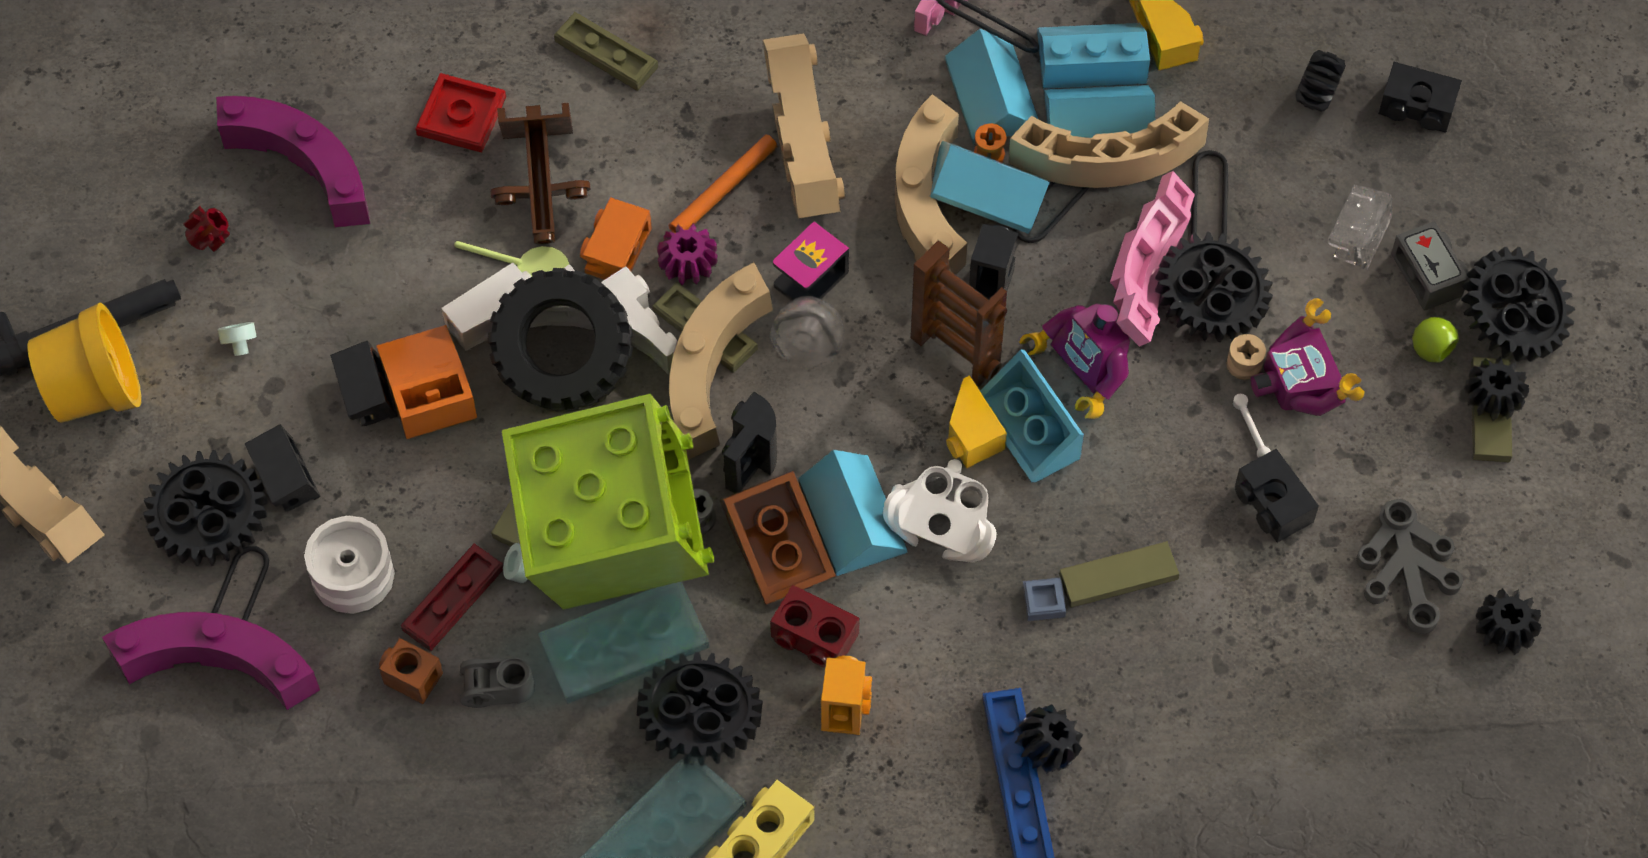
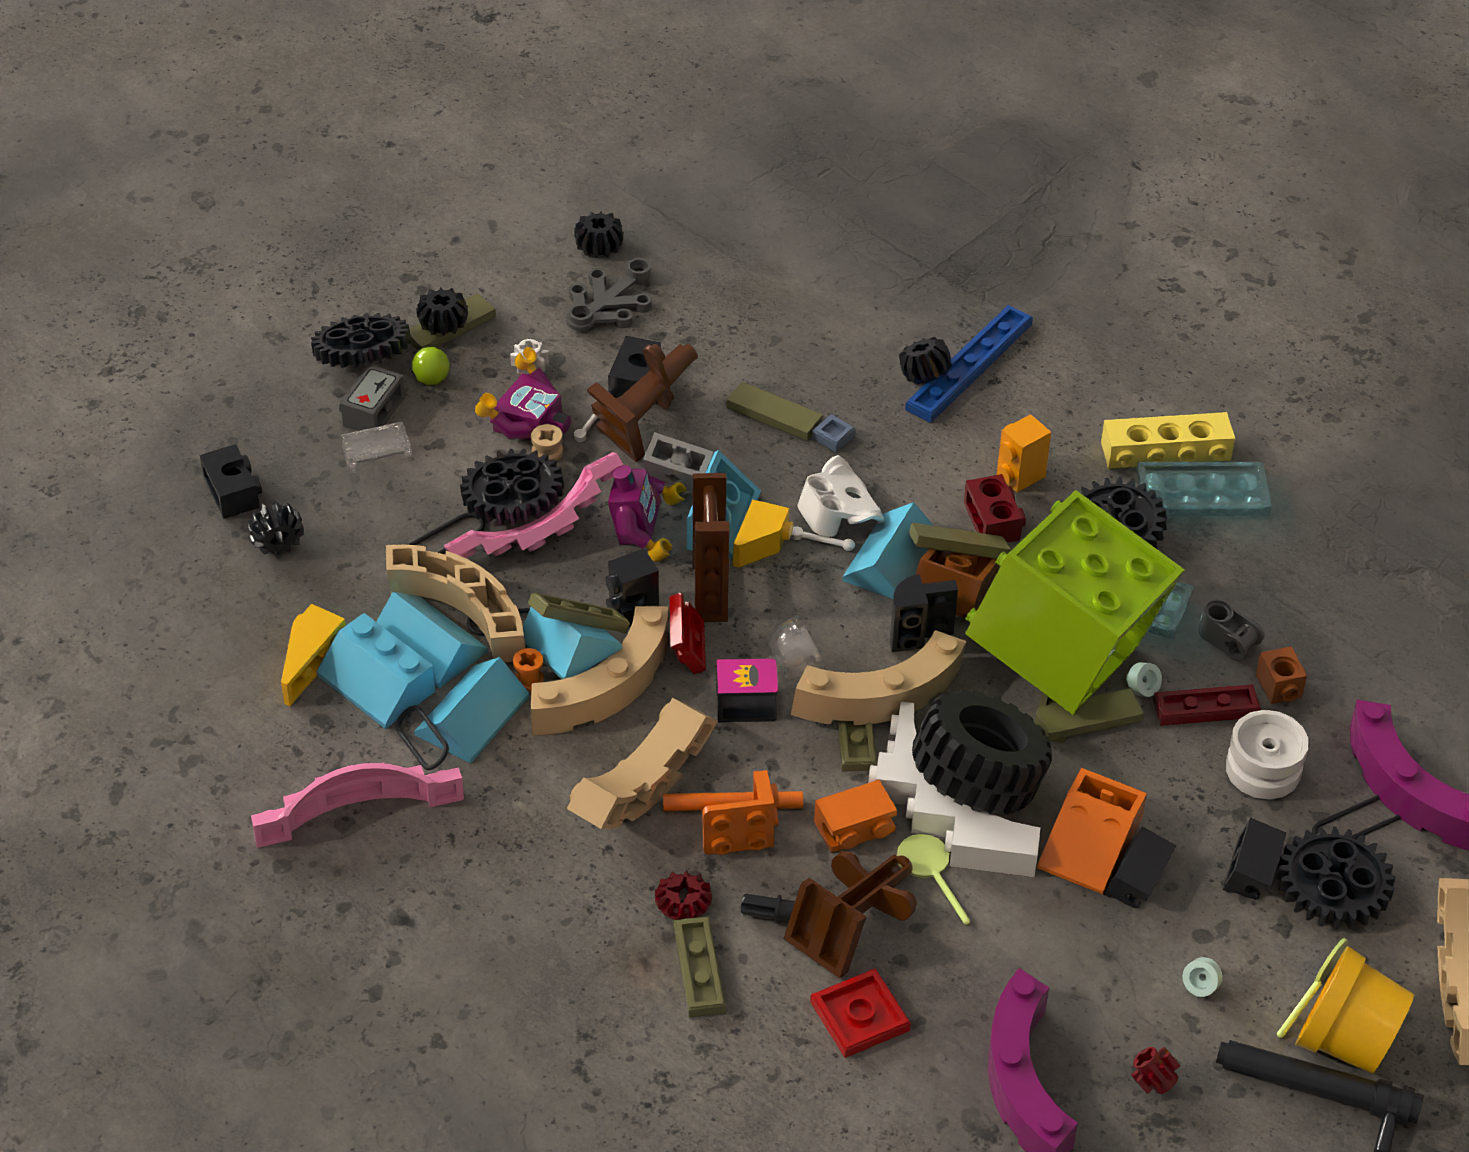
camera: 135 degrees left, 15 degrees down
(144, 407) = (1324, 971): none -> yellowish green piece
(595, 130) = (767, 907): none -> black axle
(672, 99) = (696, 902): none -> dark red gear
(675, 151) = (744, 823): none -> orange bracket
(687, 254) = (816, 769): magenta gear -> none
(798, 550) = (958, 541): none -> olive tile
(896, 265) = (687, 634): none -> red plate
(992, 183) = (578, 612): none -> olive tile
(1113, 420) = (675, 460): none -> light grey brick
(1215, 414) = (621, 414): none -> reddish brown piece
(1377, 416) = (542, 355): none -> white gear

